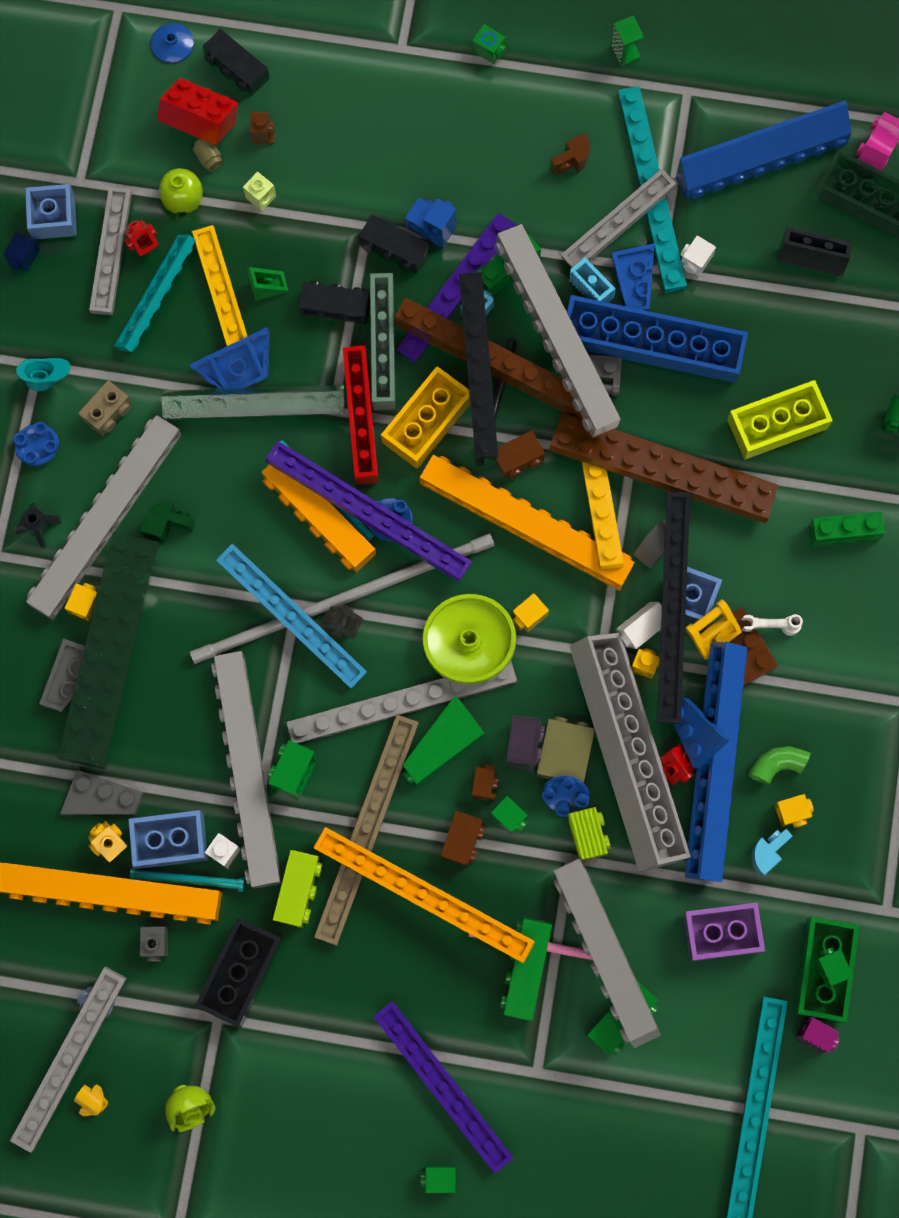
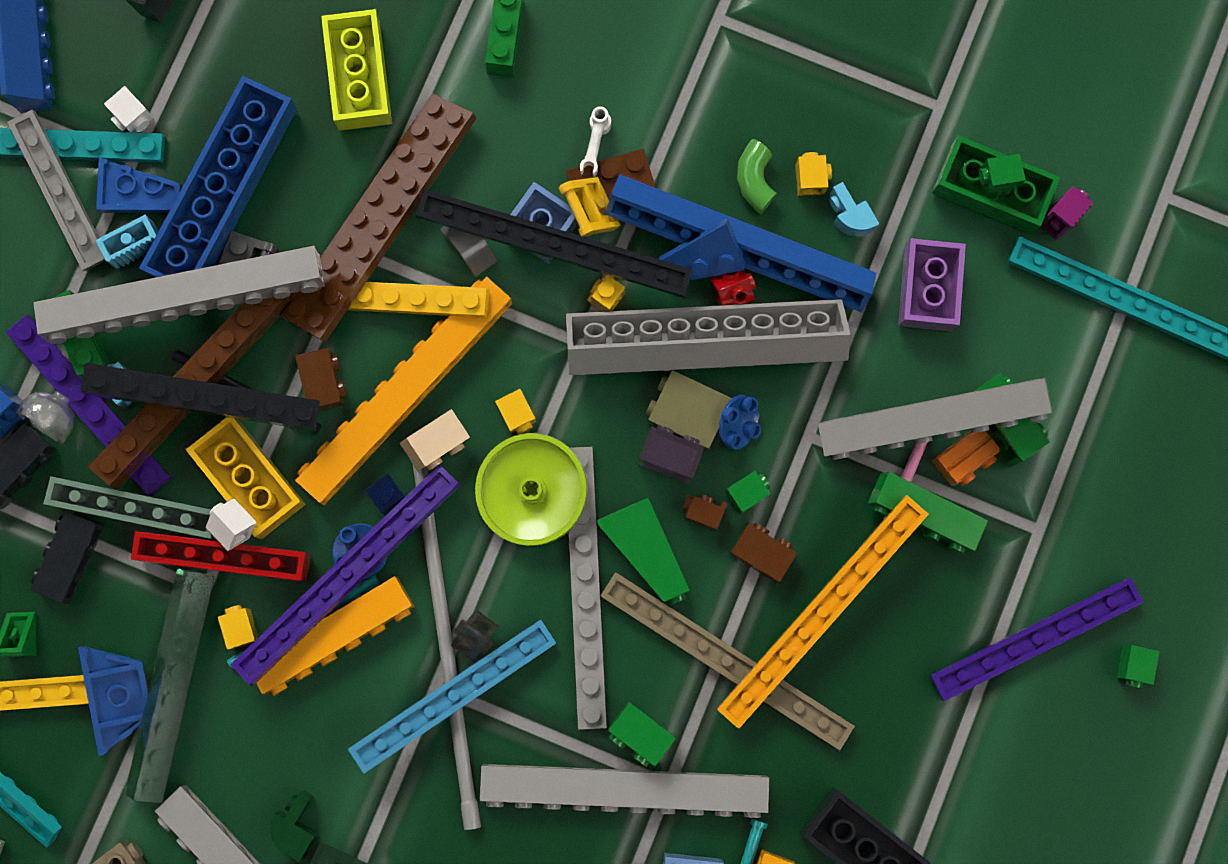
camera: 85 degrees left, 5 degrees up
(223, 850) = (716, 838): white brick -> none
(297, 889) = (780, 758): lime brick -> none
(309, 441) = (238, 627): none -> yellow brick
(386, 413) = (230, 524): none -> white brick
(439, 526) = (385, 494): none -> clear blue brick
(441, 260) = (48, 414): none -> clear cylinder
(490, 554) = (435, 440): none -> tan brick
(584, 994) = (966, 456): none -> orange brick
(587, 834) = (788, 408): lime brick -> none
(641, 625) = (562, 287): white brick -> none

